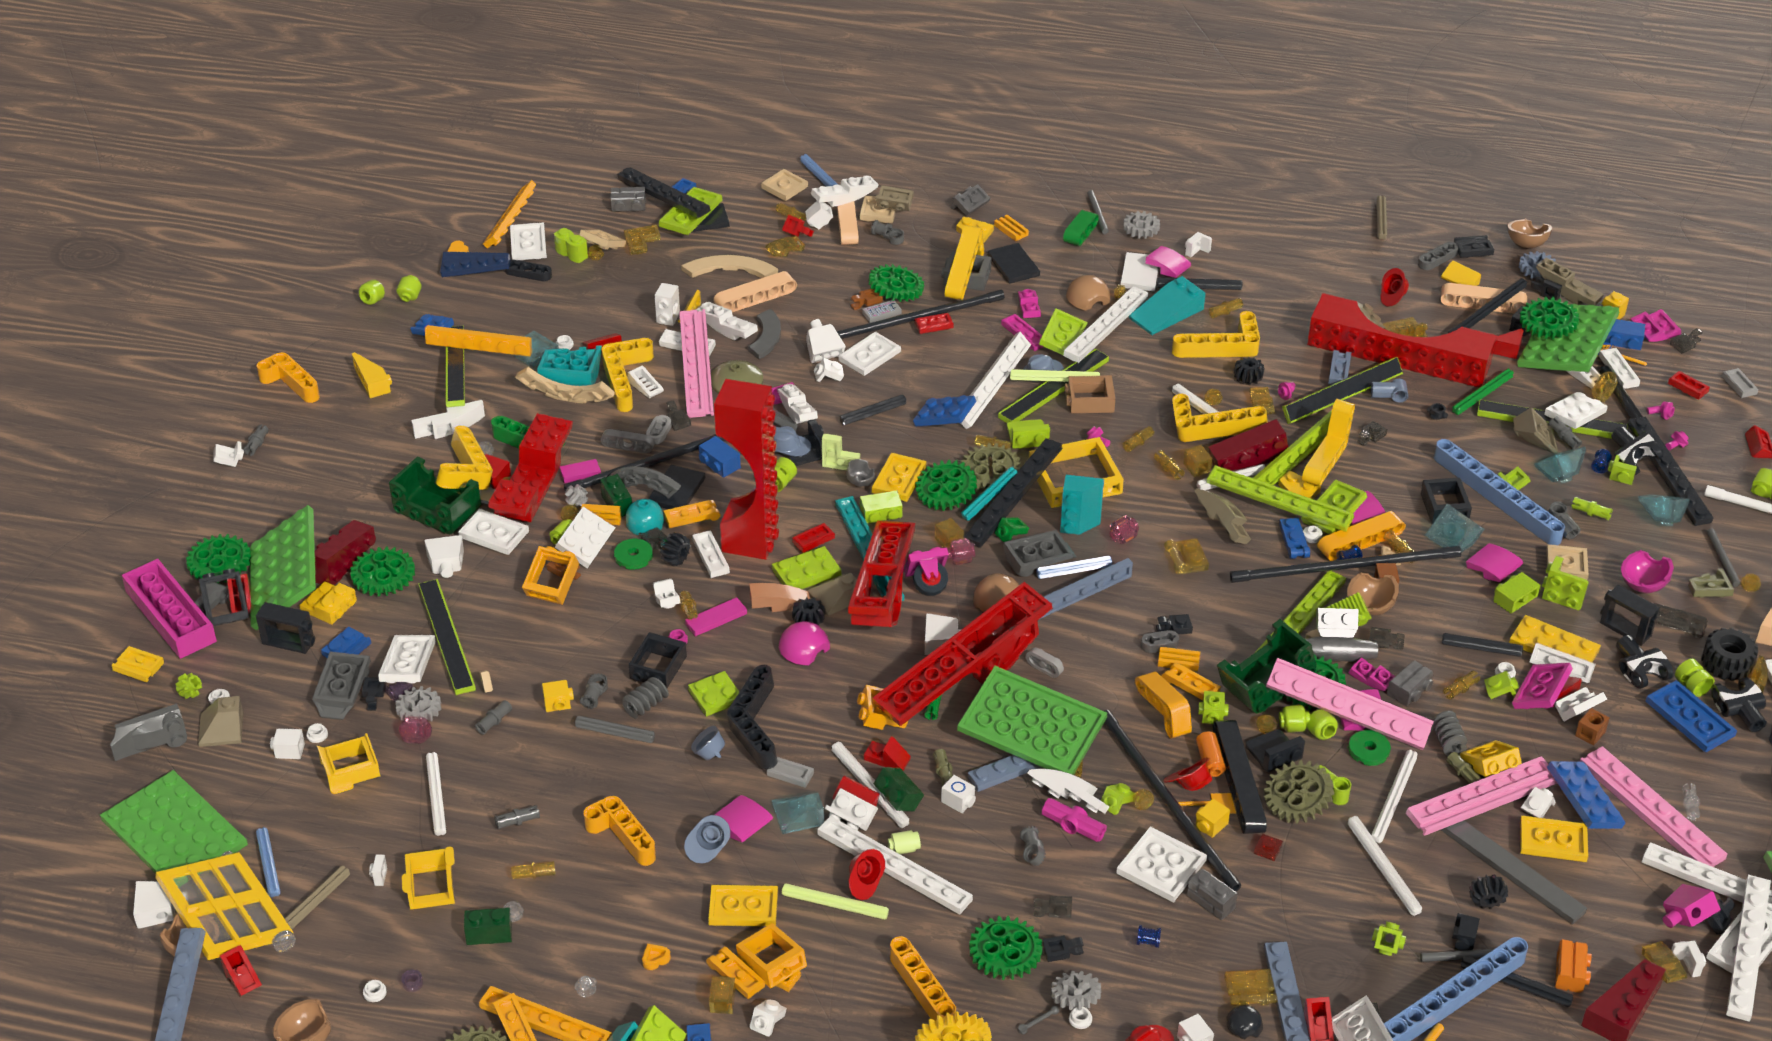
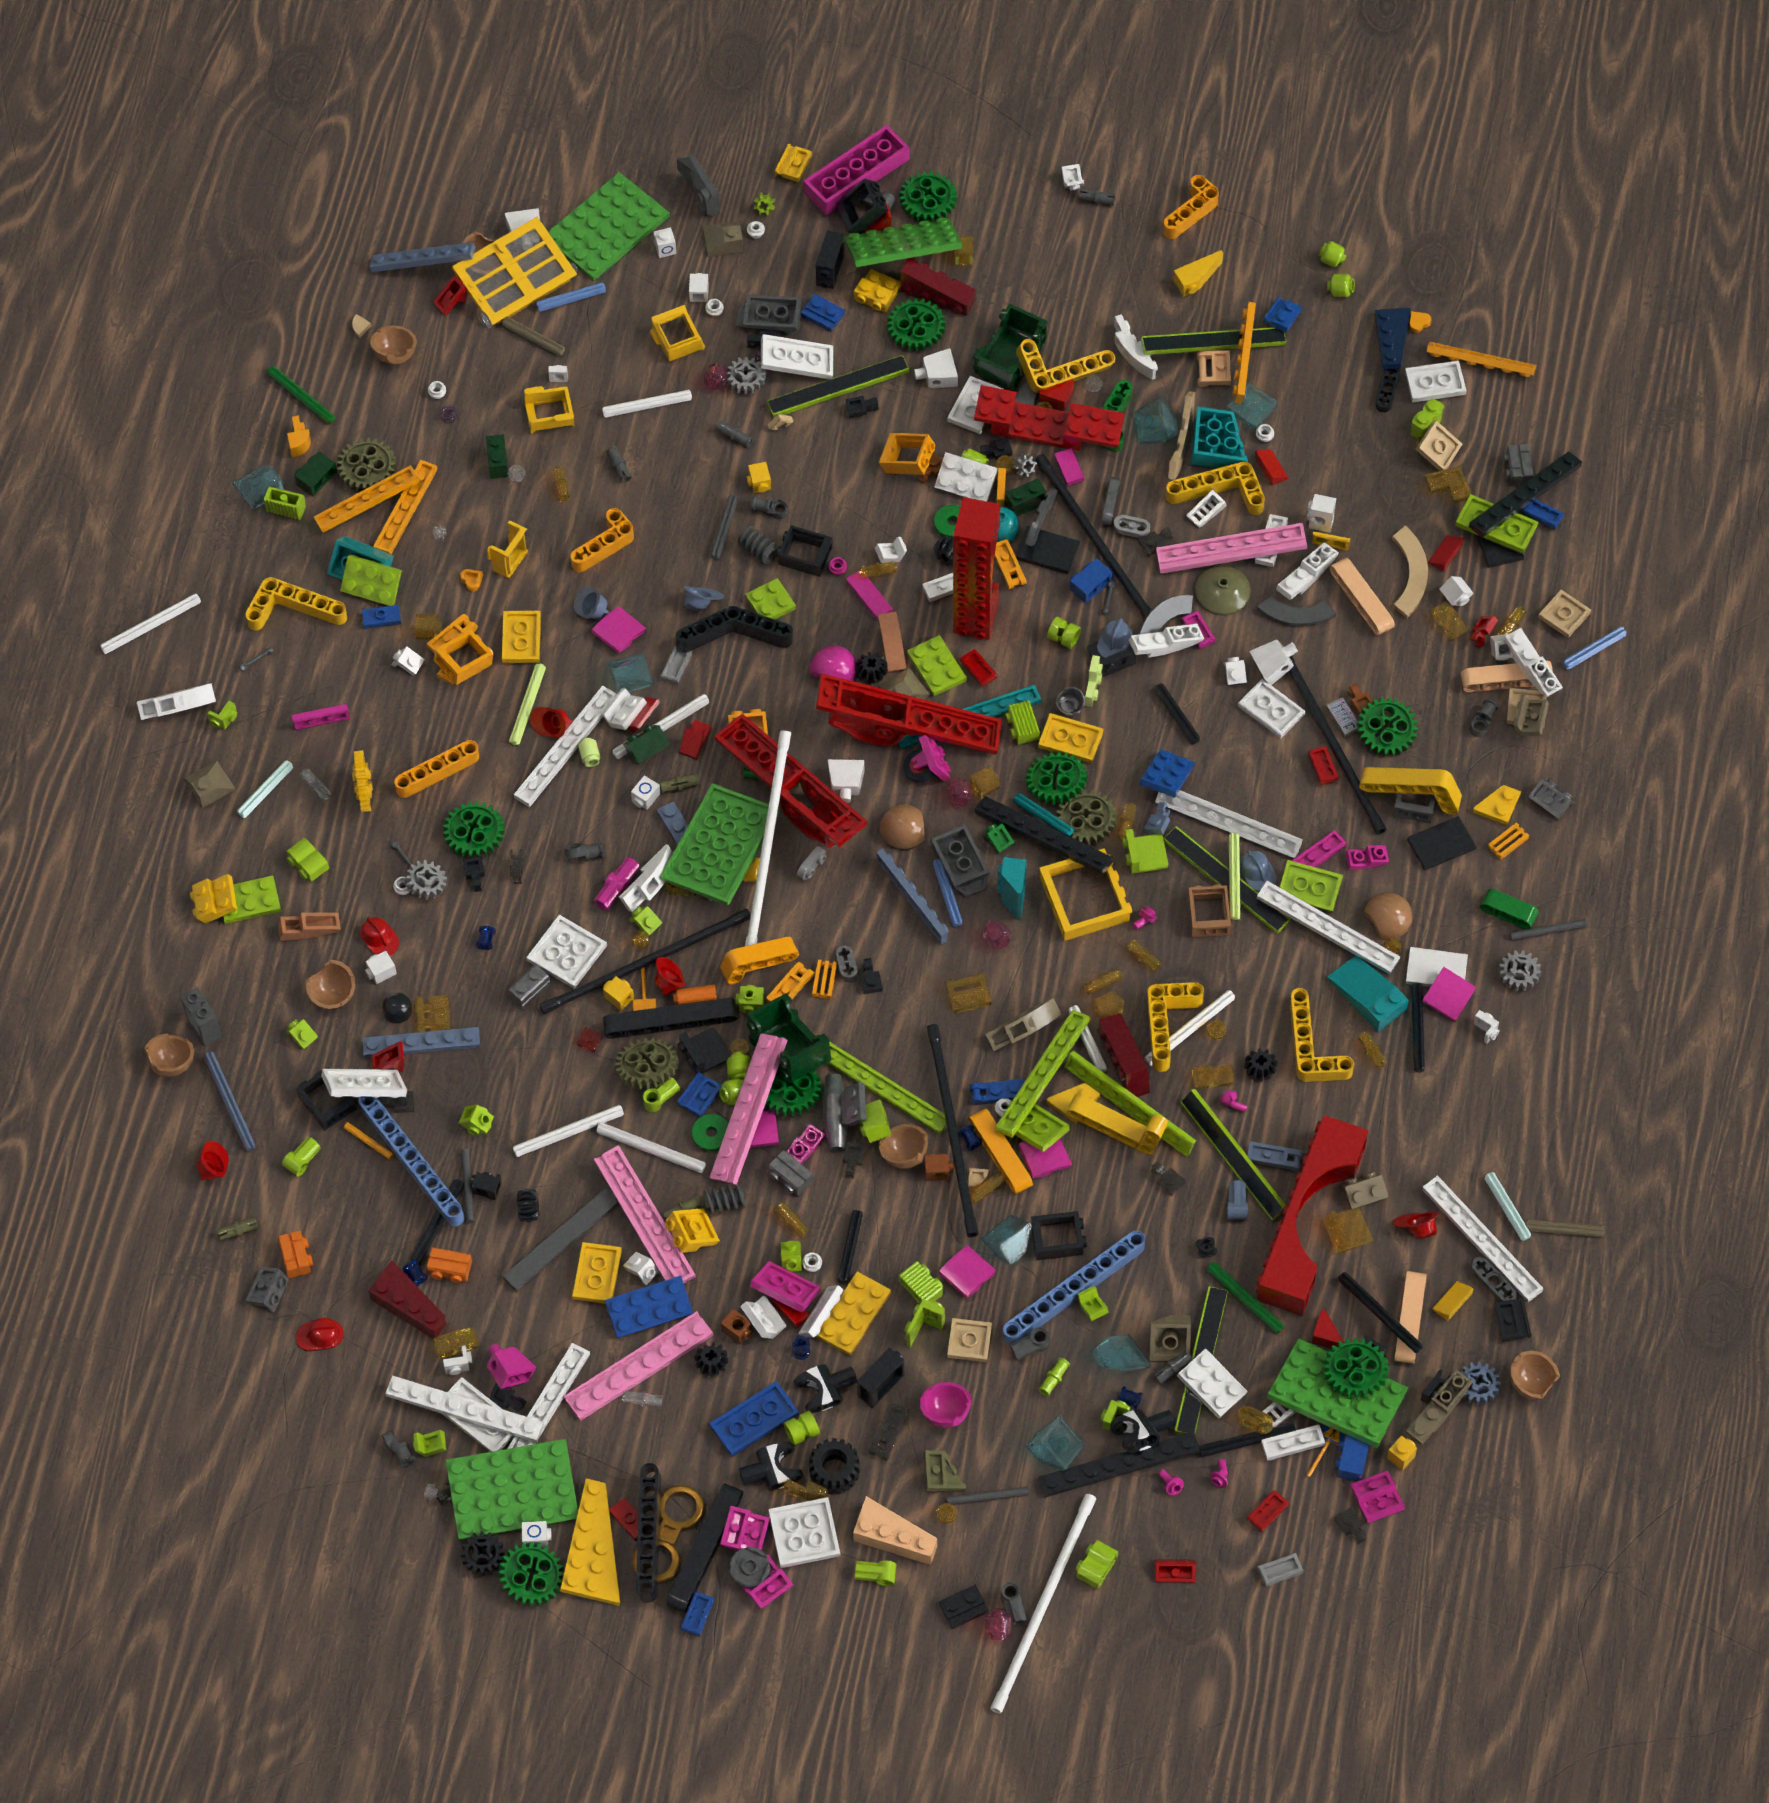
camera: 90 degrees right, 20 degrees up
(217, 771) = (664, 242): none -> white brick
(477, 617) = (858, 406): none -> black plate
(484, 366) = (1220, 368): none -> light nougat plate
(539, 402) = (1156, 423): none -> clear light blue slope
(549, 518) = (997, 448): none -> black plate
(635, 920) = (507, 561): none -> yellow piece
(712, 244) = (1446, 552): none -> red slope
(758, 236) = (1456, 591): none -> white brick
(994, 424) = (1158, 823): none -> sand blue plate
(1137, 709) = (783, 746): none -> white piece
(1328, 753) = (699, 1095): none -> blue plate
(1366, 245) = (1507, 1206): none -> light aqua axle
(1399, 258) = (1482, 1239): none -> white plate
(1586, 998) = (415, 1273): none -> clear blue bush
(1605, 678) = (798, 1353): none -> clear blue bush
(1634, 746) = (717, 1363): none -> black gear

